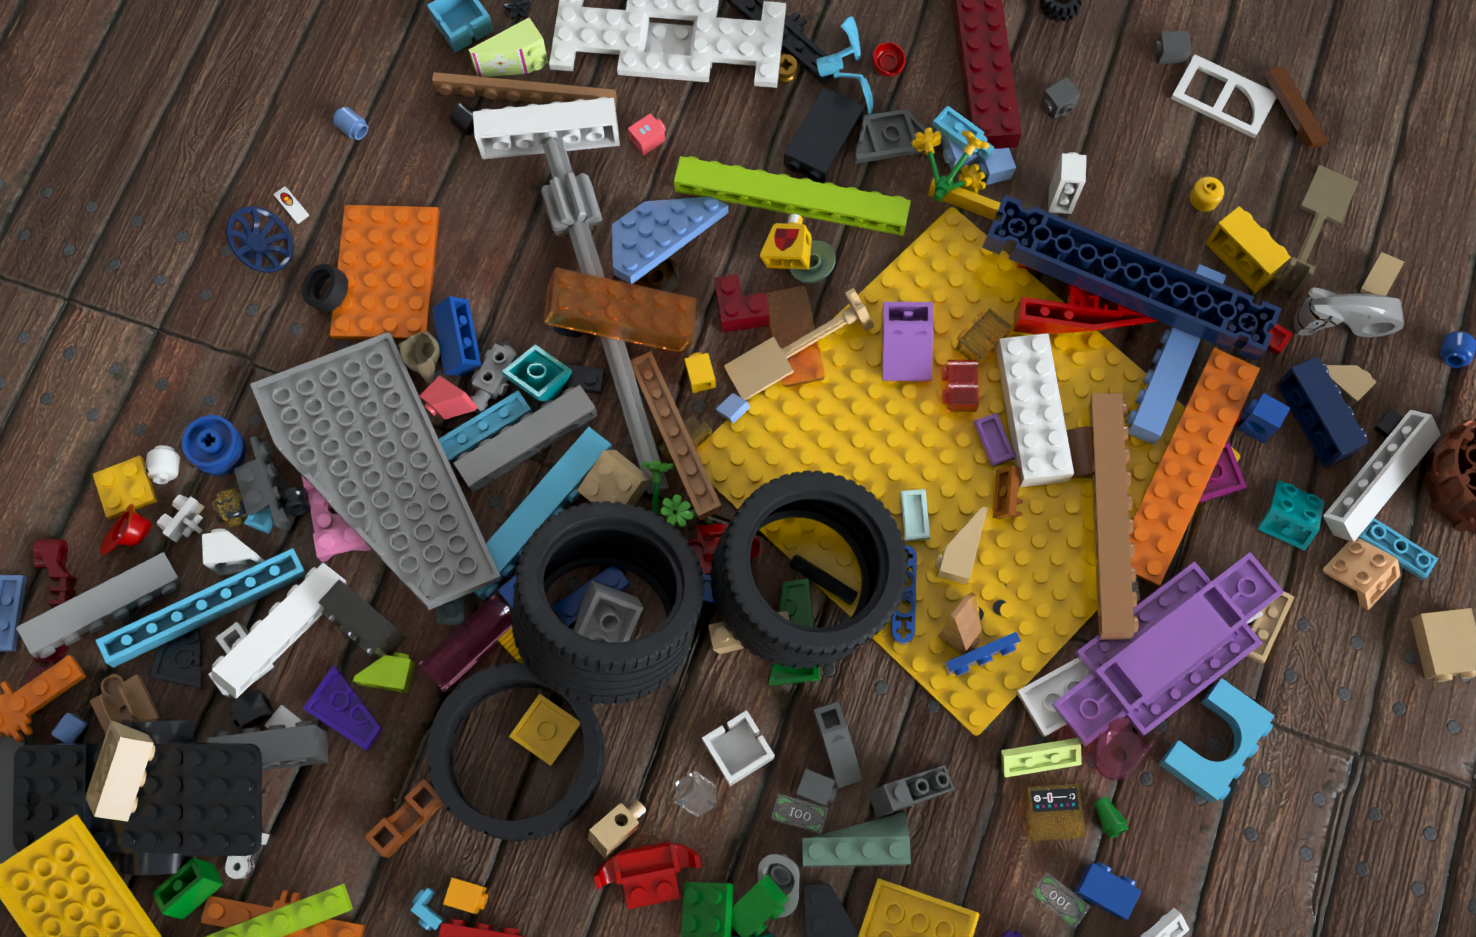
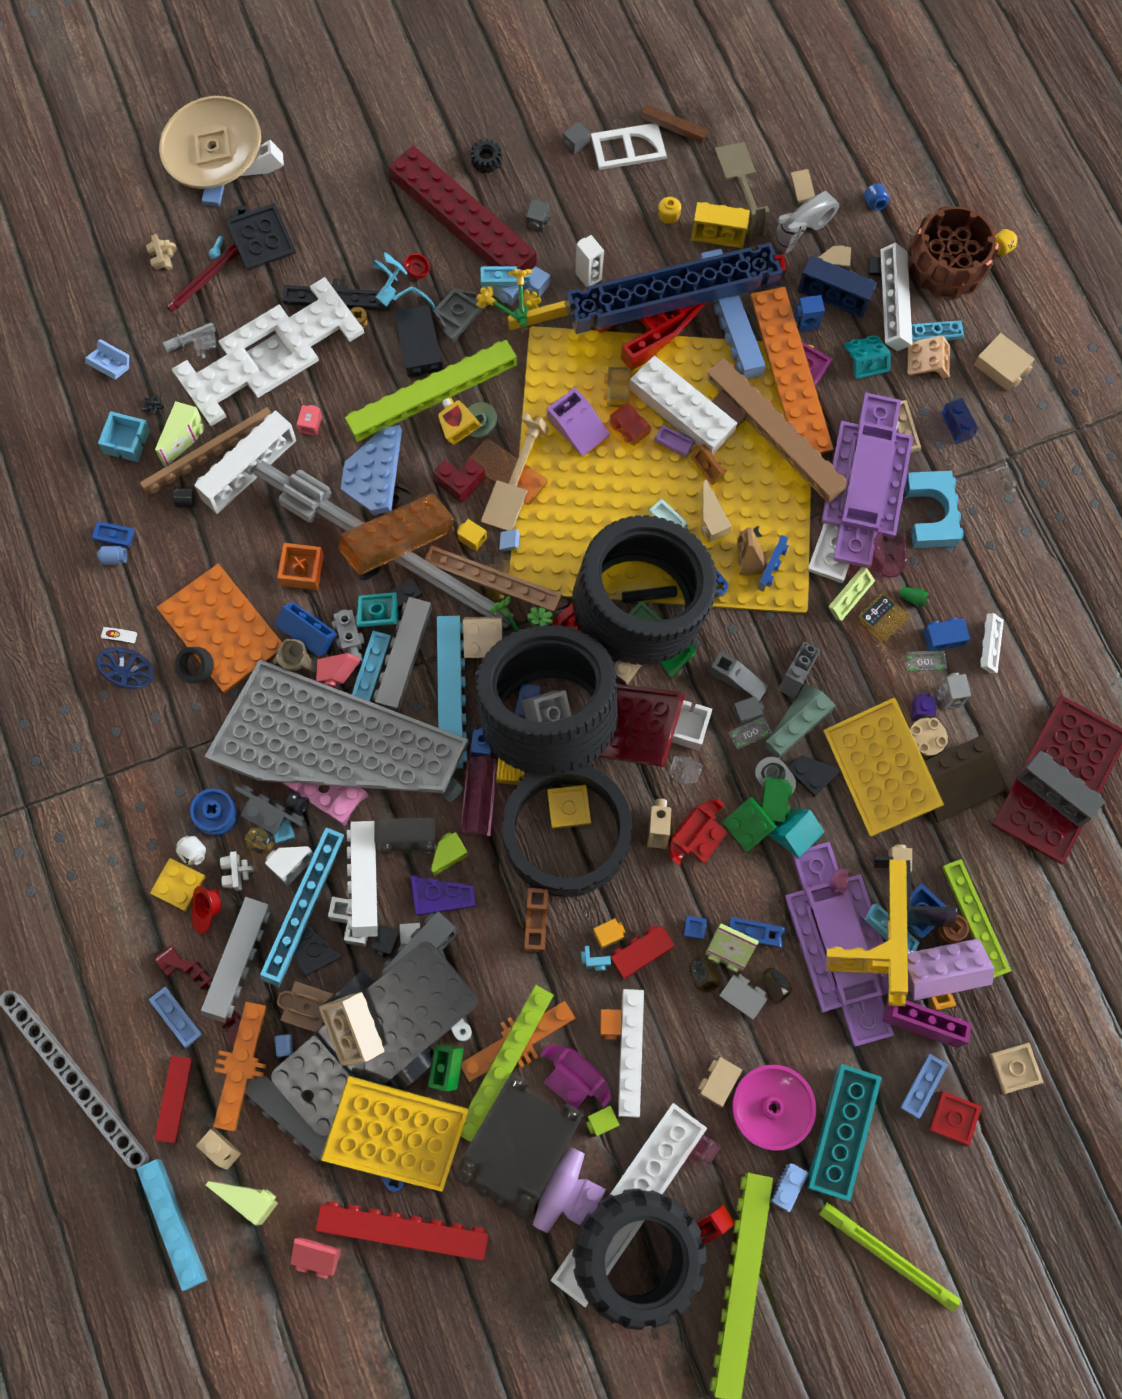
camera: 45 degrees left, 0 degrees up
(370, 104) = (113, 534): none -> blue plate
(507, 271) = (300, 566): none -> orange brick
(690, 710) = (644, 725): none -> dark red plate
(1335, 668) = (959, 420): none -> clear blue brick

